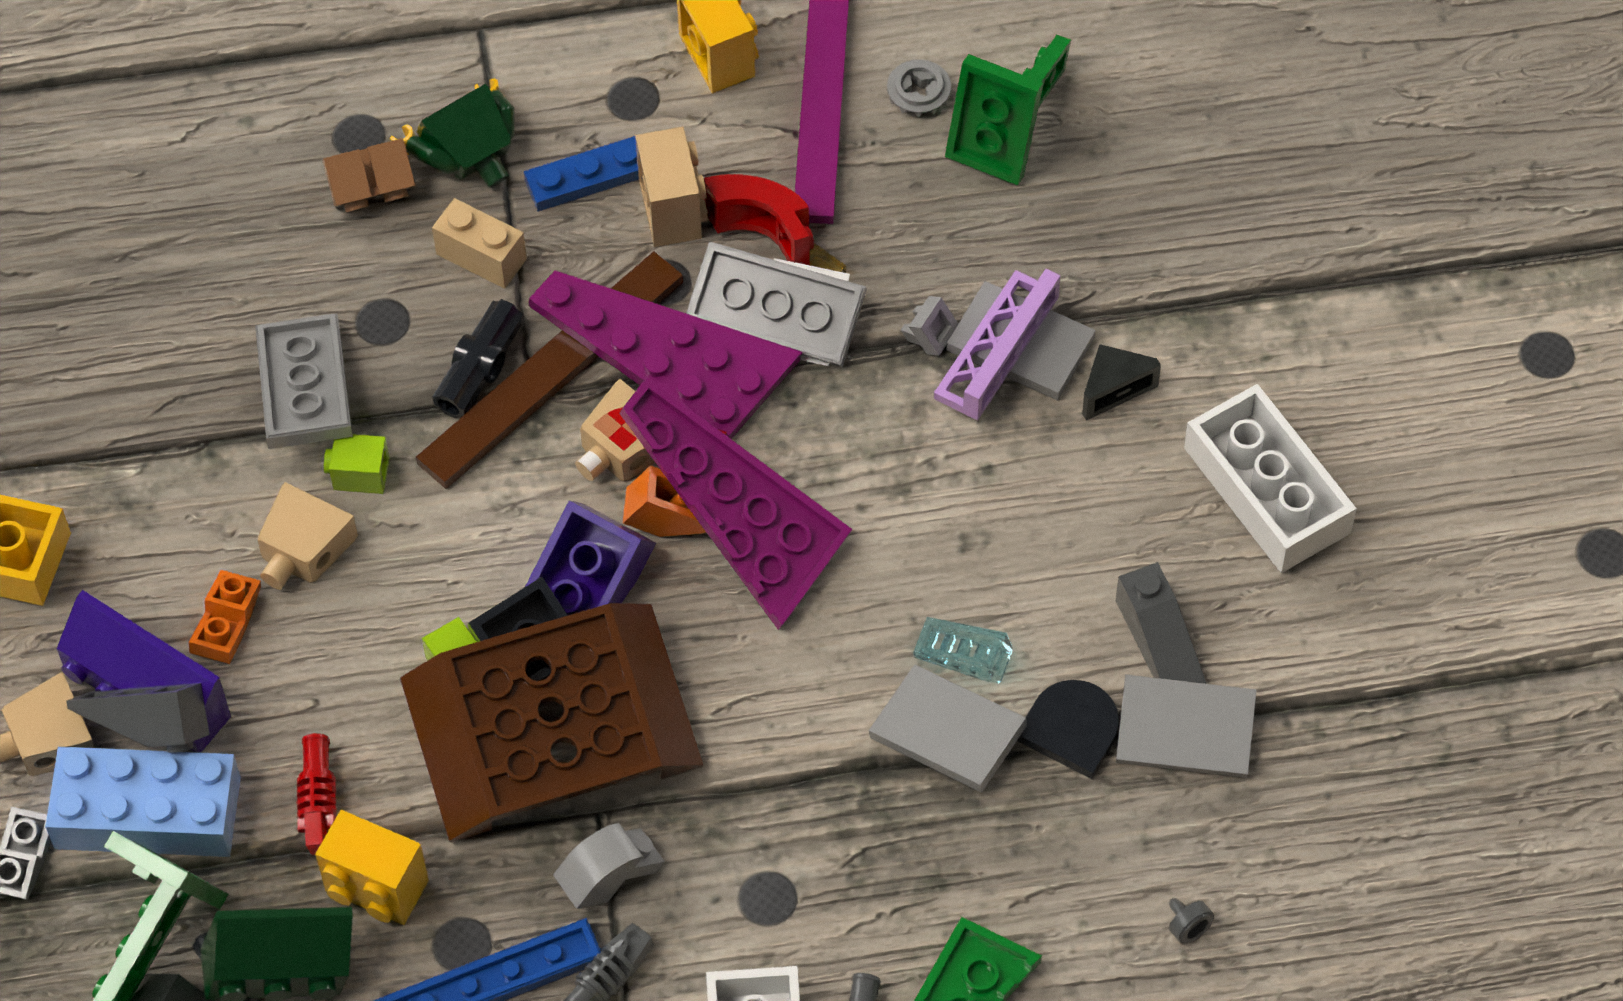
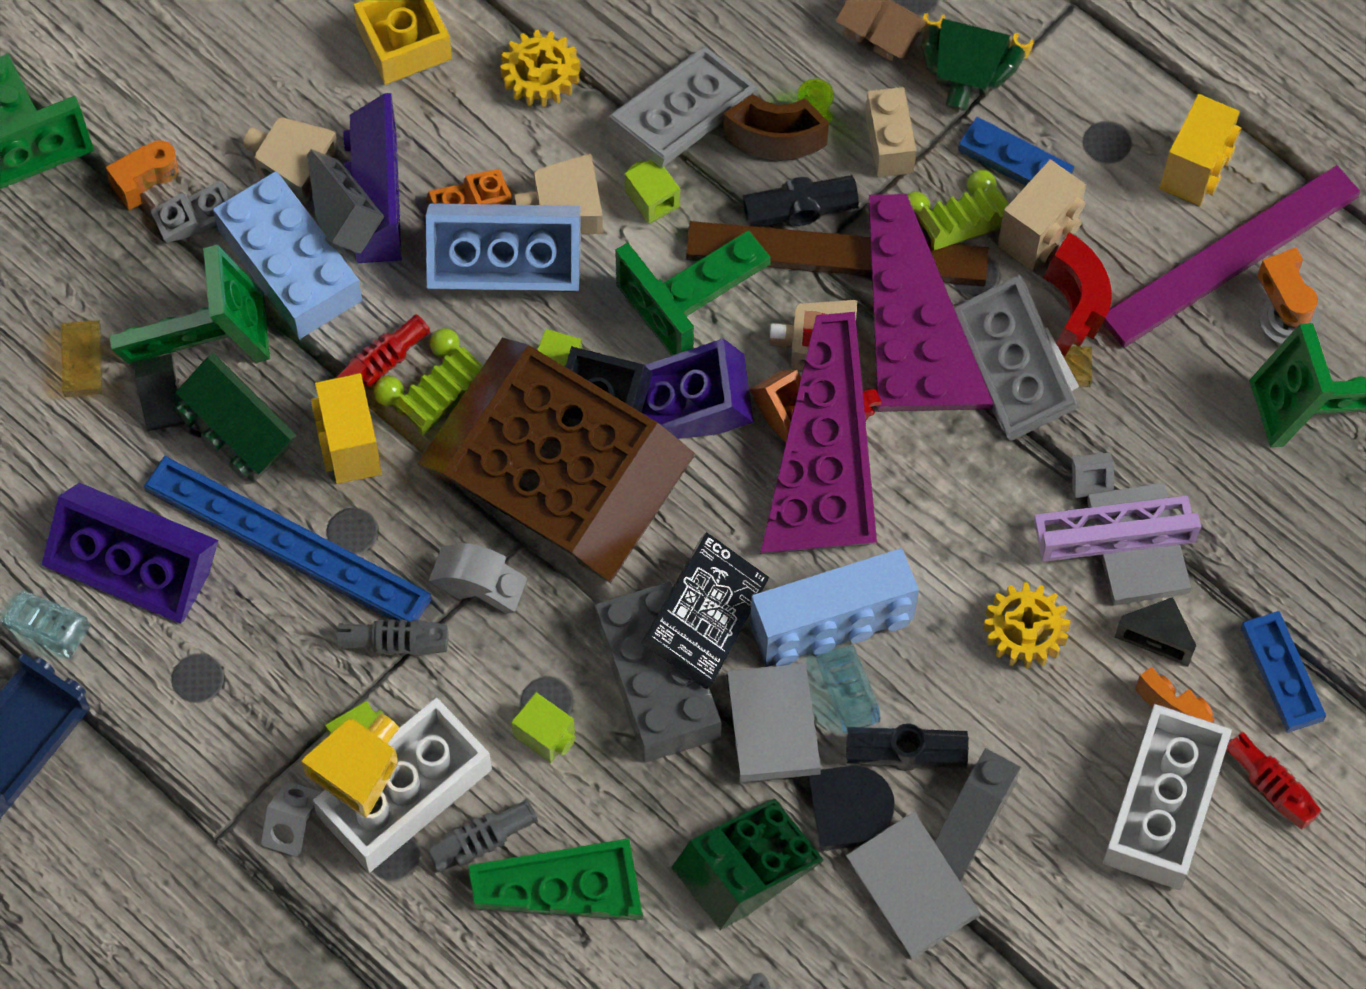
camera: 50 degrees right, 5 degrees up
(153, 467) = (543, 71): none -> yellow gear
(311, 614) = (503, 247): none -> light blue brick
(392, 767) = (435, 393): none -> lime gear
(393, 280) = (819, 94): none -> clear neon green brick
(396, 325) = (775, 129): none -> reddish brown brick
(483, 528) = (669, 303): none -> green piece
(614, 240) = (965, 217): none -> lime gear
(799, 913) = (544, 728): none -> lime brick
(809, 700) = (705, 611): none -> black tile
(825, 783) = (662, 703): none -> dark grey brick
(890, 602) = (834, 608): none -> light blue brick
(899, 63) = (1286, 288): none -> orange leg
(1026, 474) = (1042, 620): none -> yellow gear
(1044, 658) = (933, 747): none -> black piece
(1059, 842) = (745, 862): none -> dark green slope
(1170, 420) = (1160, 691): none -> orange slope
(1225, 319) = (1283, 672): none -> blue plate
(1322, 395) = (1275, 782): none -> red hinge

